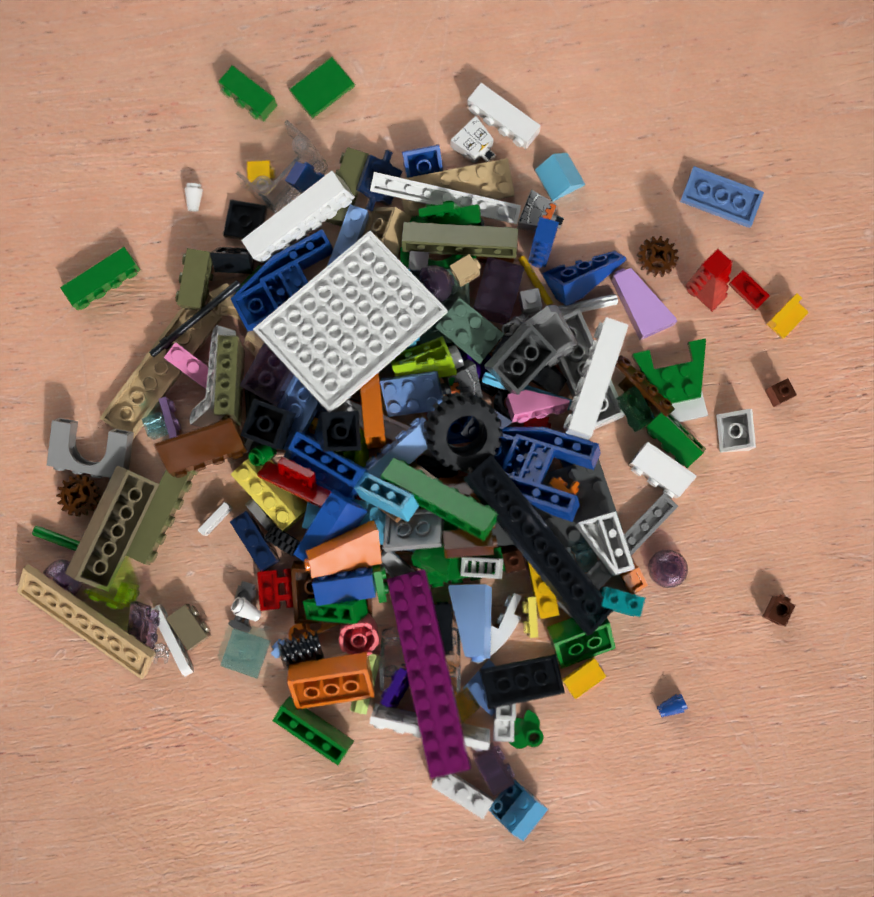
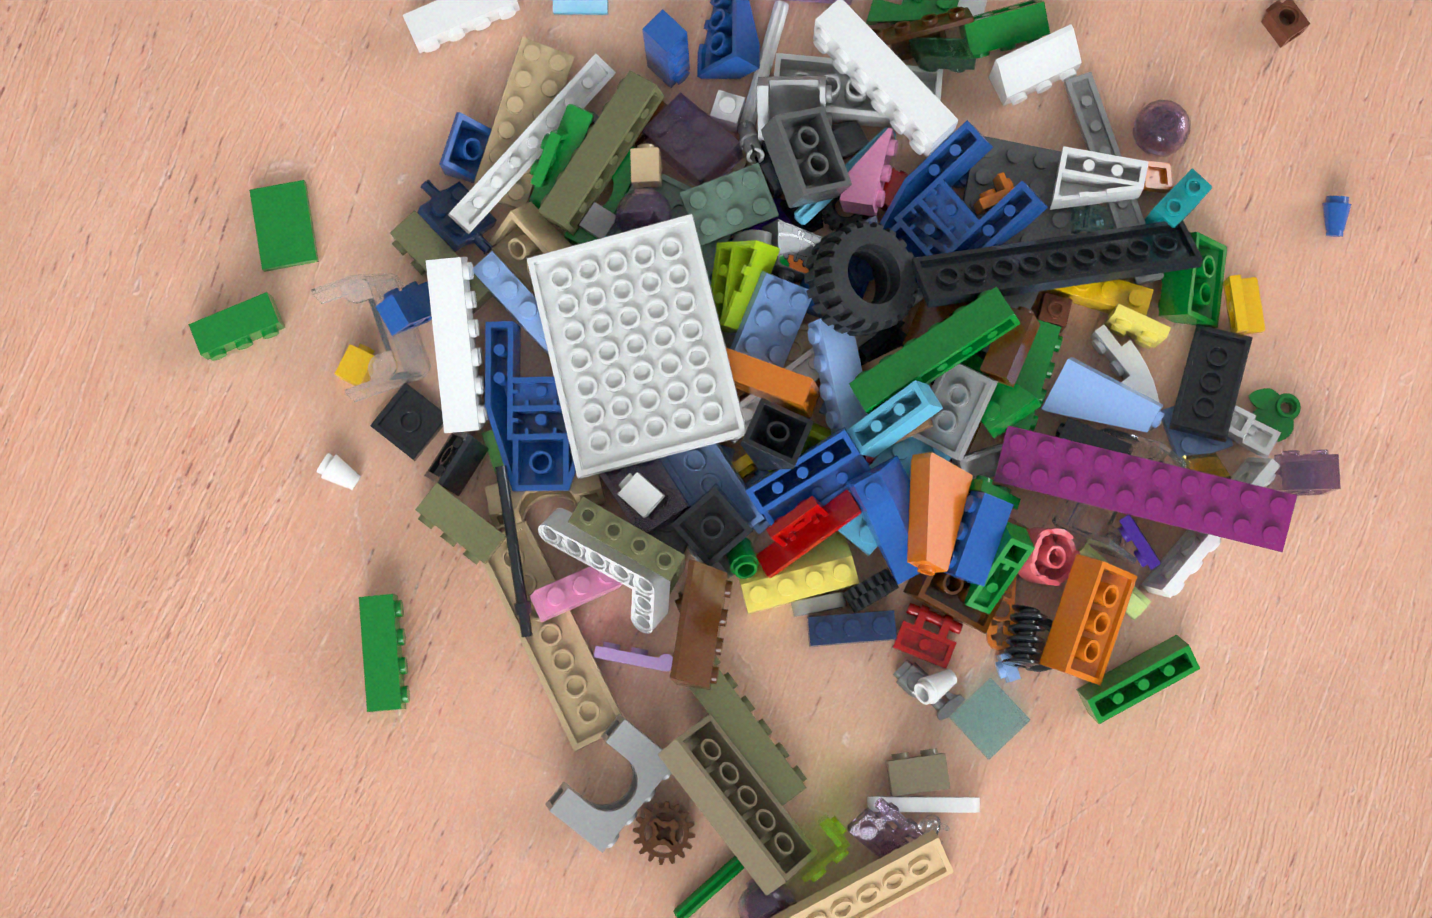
camera: 60 degrees left, 0 degrees up
(155, 426) = (626, 679): clear light blue brick -> none
(215, 519) = (793, 665): white tile -> none
(262, 371) = (640, 494): none -> white brick
(463, 794) = (1315, 530): white brick -> none
(474, 142) = (474, 68): white torso -> none
(498, 568) = (1060, 335): white slope -> none
(518, 810) = (1369, 474): dark azure slope -> none
(535, 280) = (702, 91): yellow bar -> none
(537, 207) = (617, 38): light grey torso -> none

